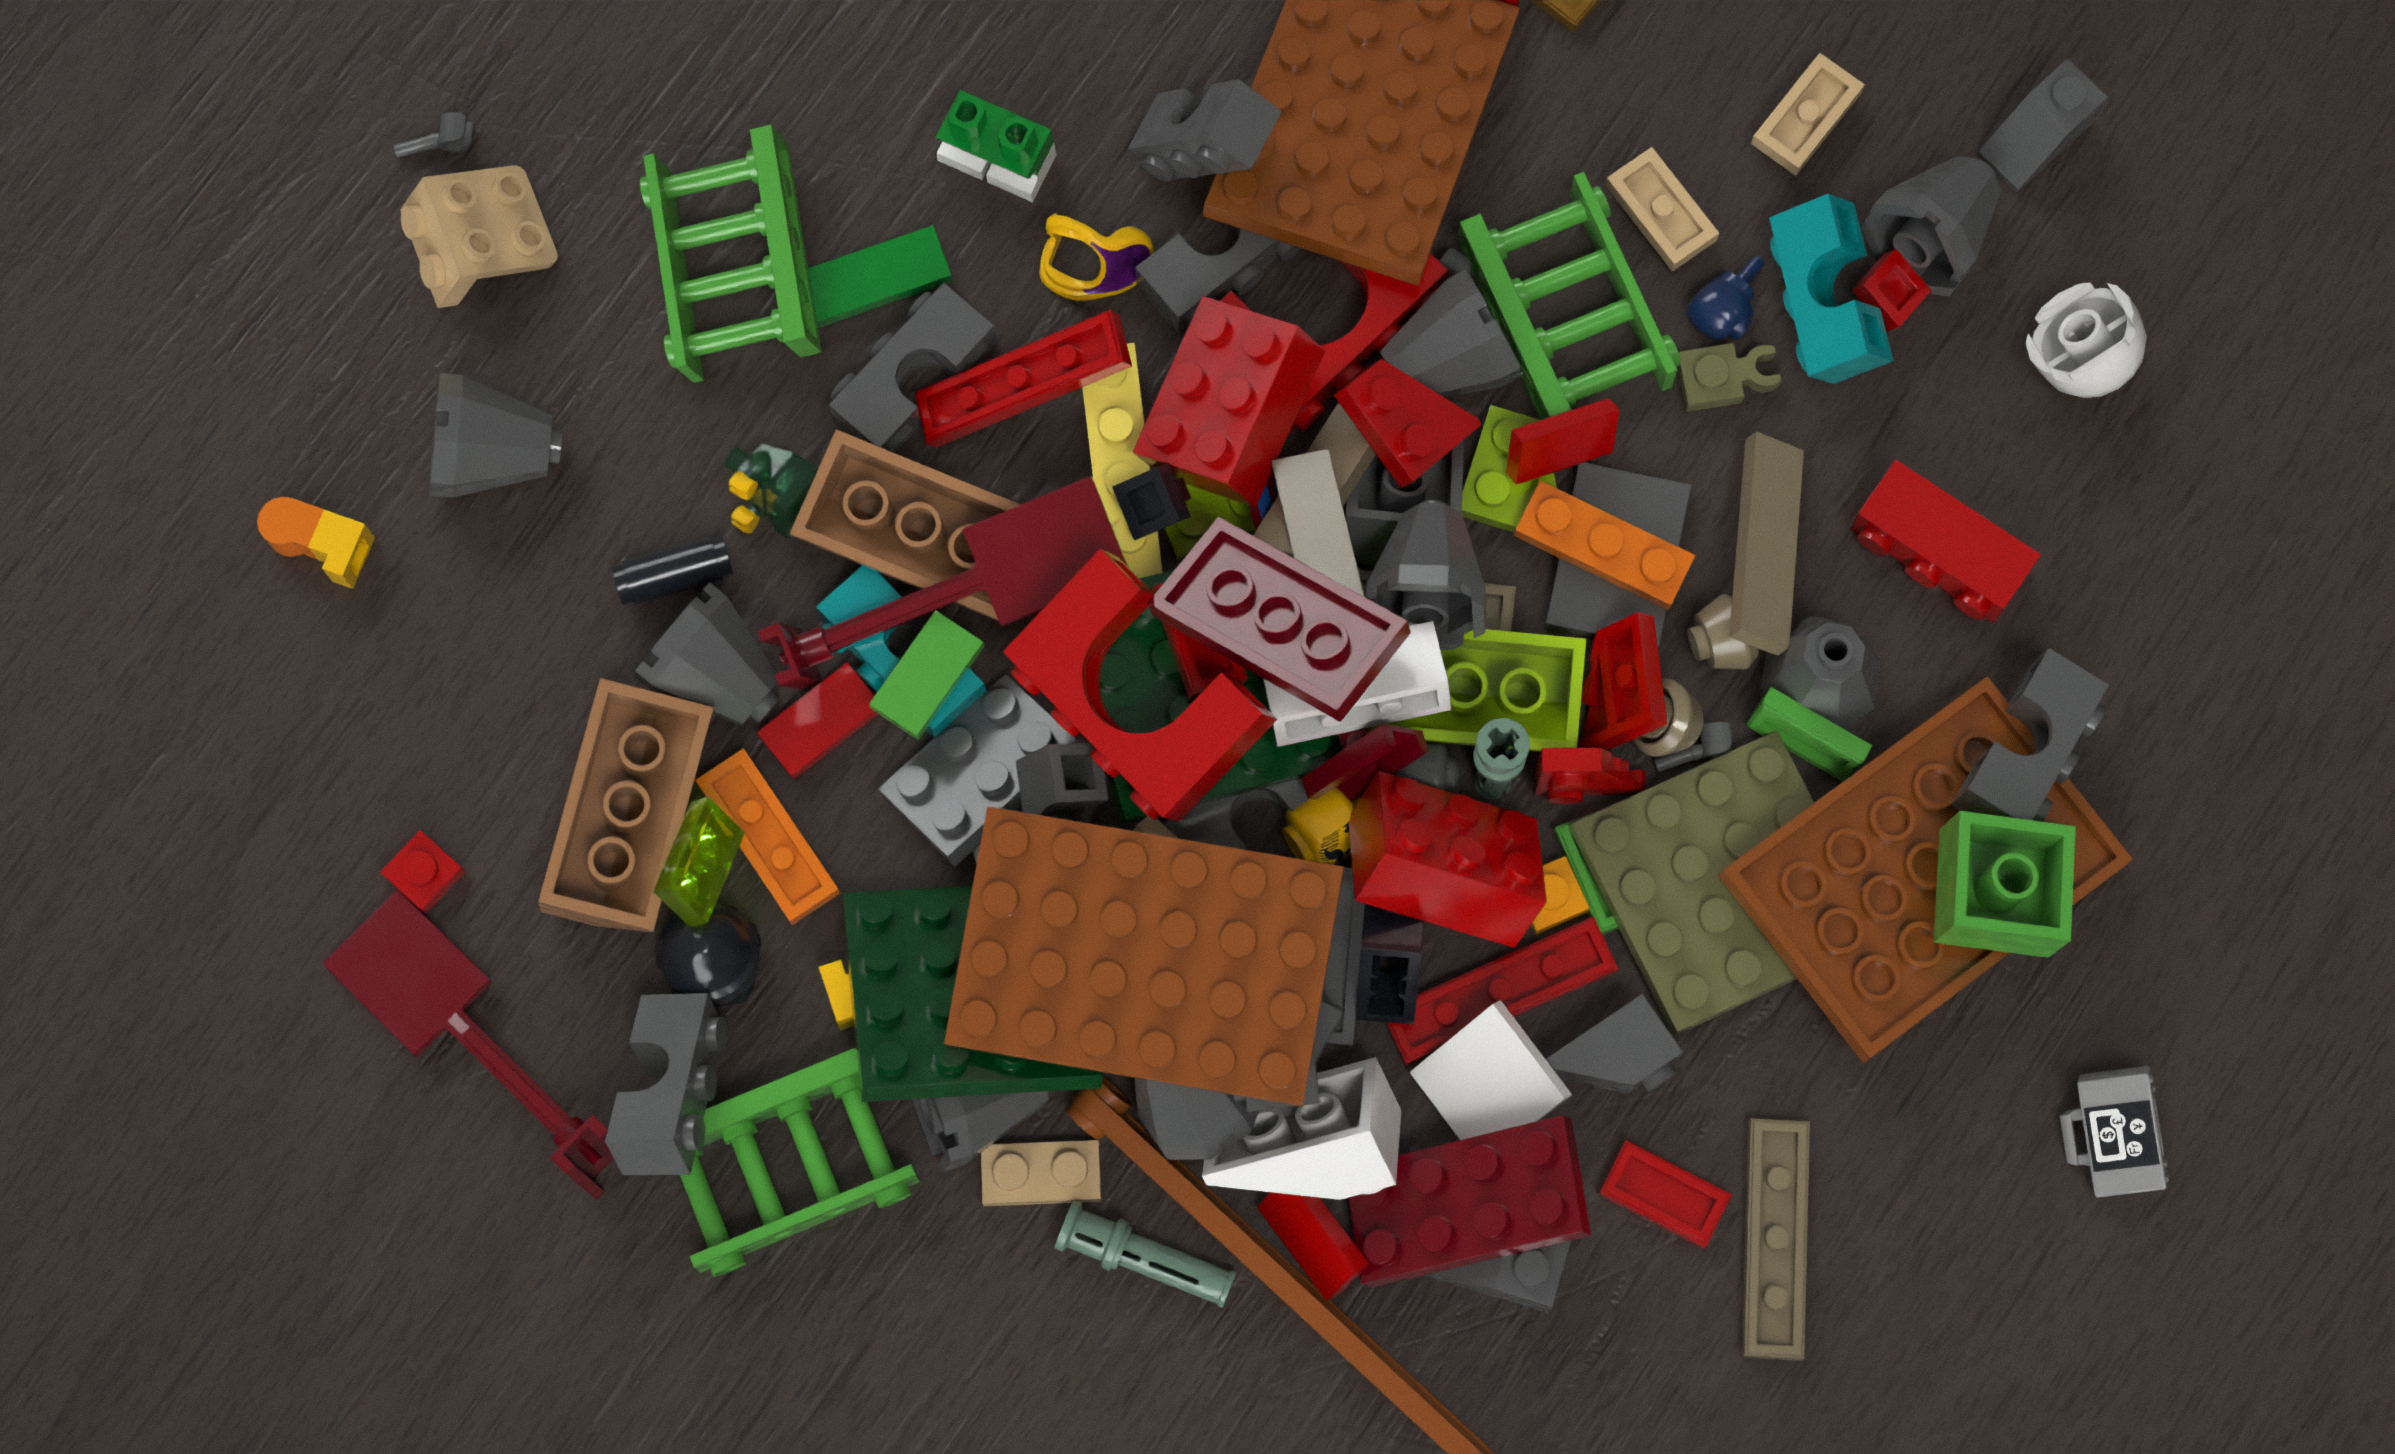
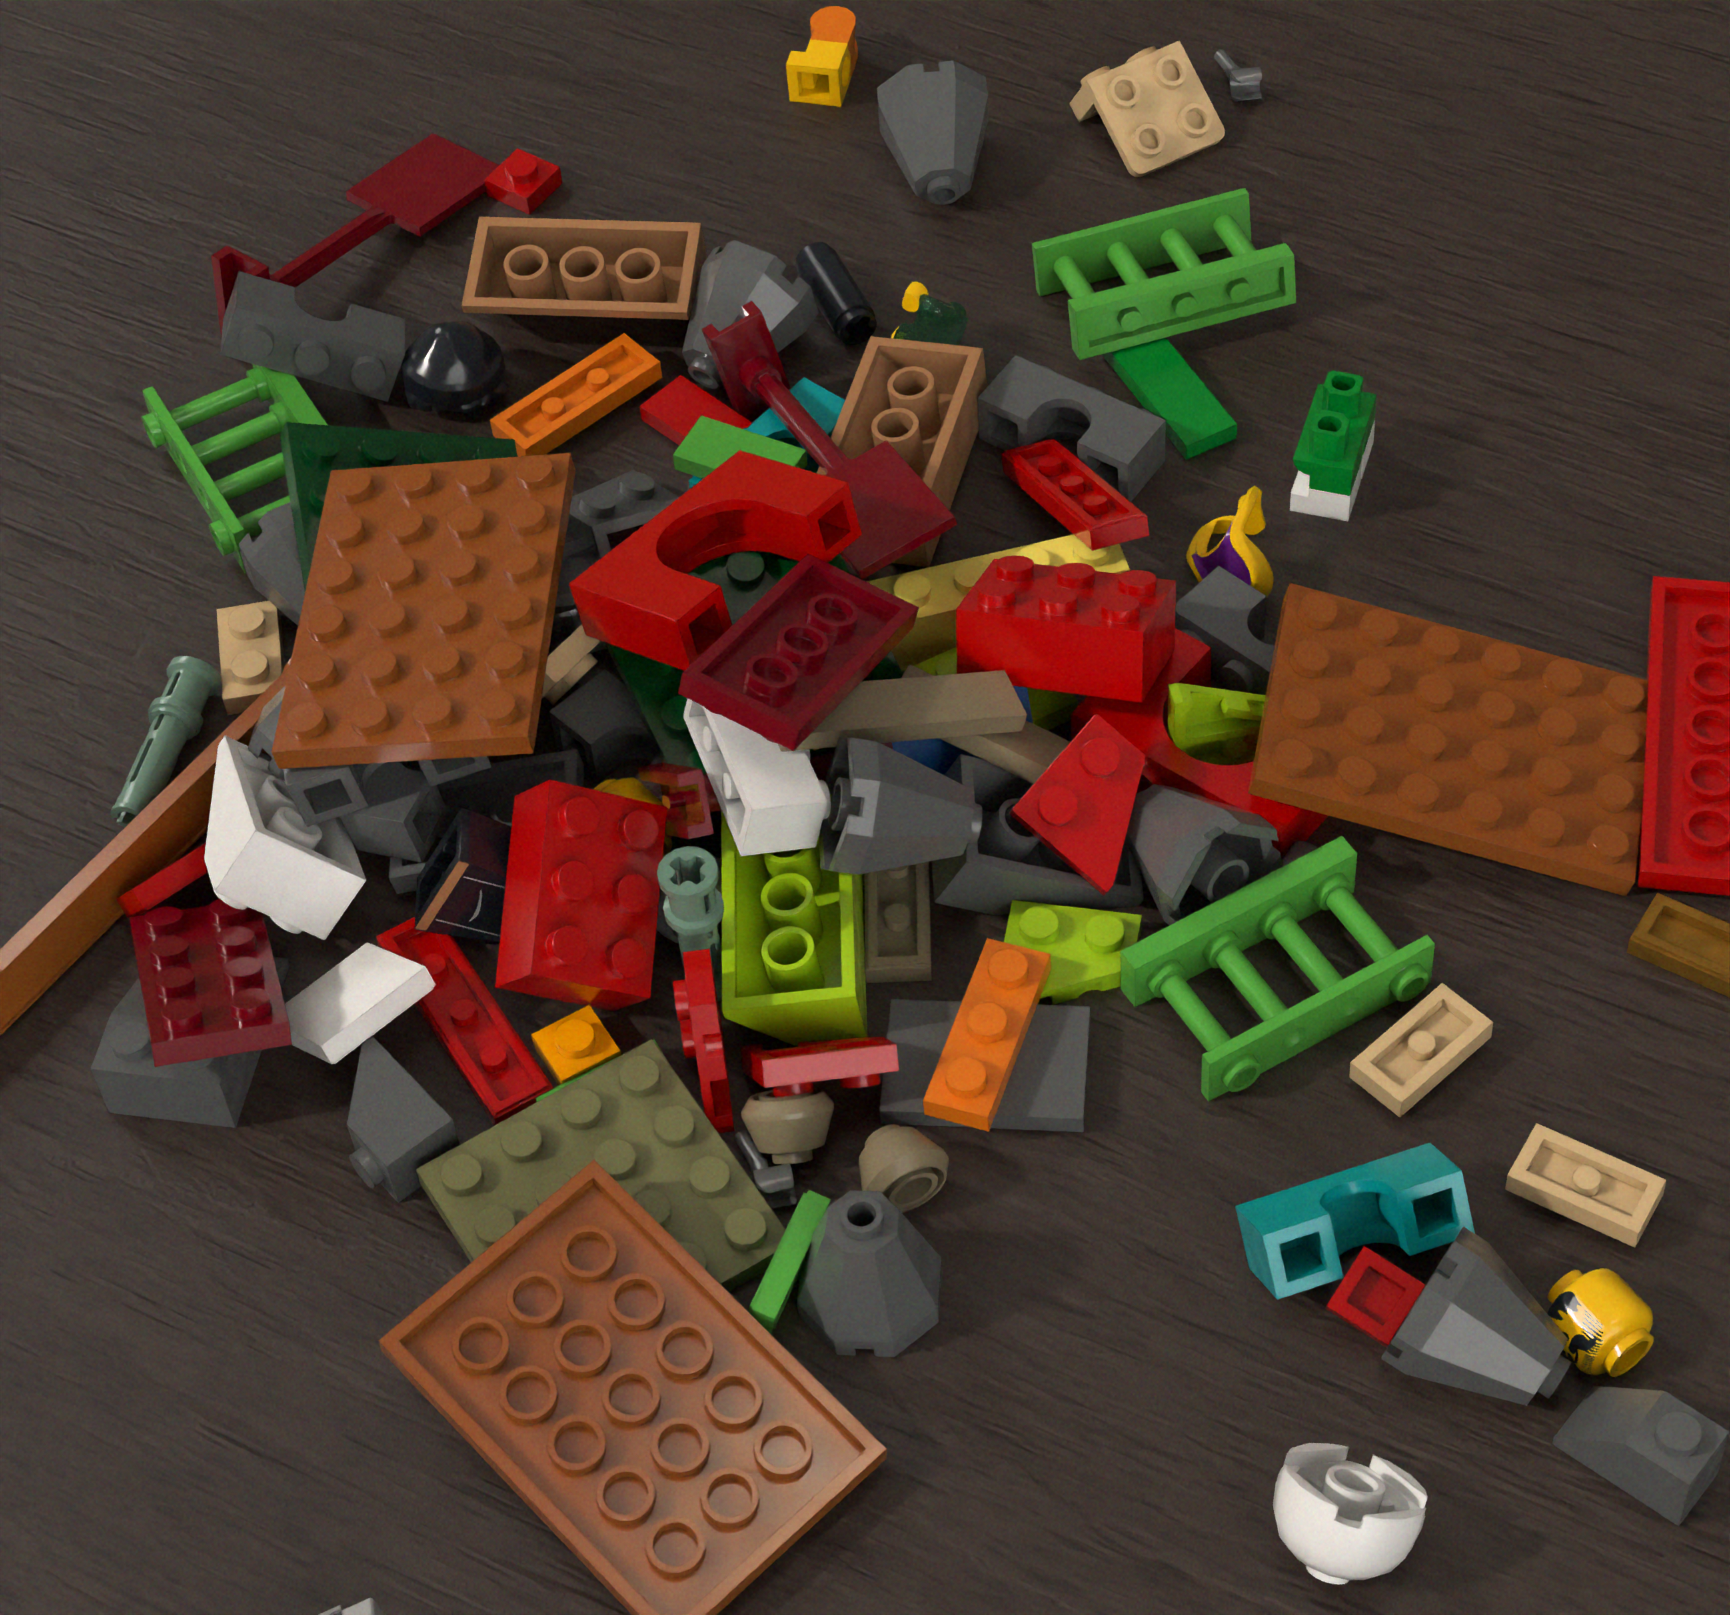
camera: 85 degrees right, 25 degrees down
(699, 862) = (528, 319): clear neon green plate -> none
(1153, 501) = (941, 581): black tile -> none
(1206, 136) = (1375, 570): dark grey arch -> none
(1312, 273) = (1214, 723): none -> lime wing
(1562, 441) = (1101, 968): red tile -> none
(1665, 1194) = (239, 1202): red tile -> none
(1717, 377) = (1230, 1139): olive plate -> none
(1724, 304) = (1316, 1128): dark blue piece -> none
(1766, 544) = (1015, 1184): dark tan tile -> none
(1776, 1239) = (188, 1319): dark tan tile -> none
(1933, 131) = (1602, 1320): none -> yellow head
(1943, 543) = (1054, 1390): red brick -> none
(2004, 884) = (595, 1448): bright green brick -> none
(2057, 706) = (841, 1519): dark grey arch -> none

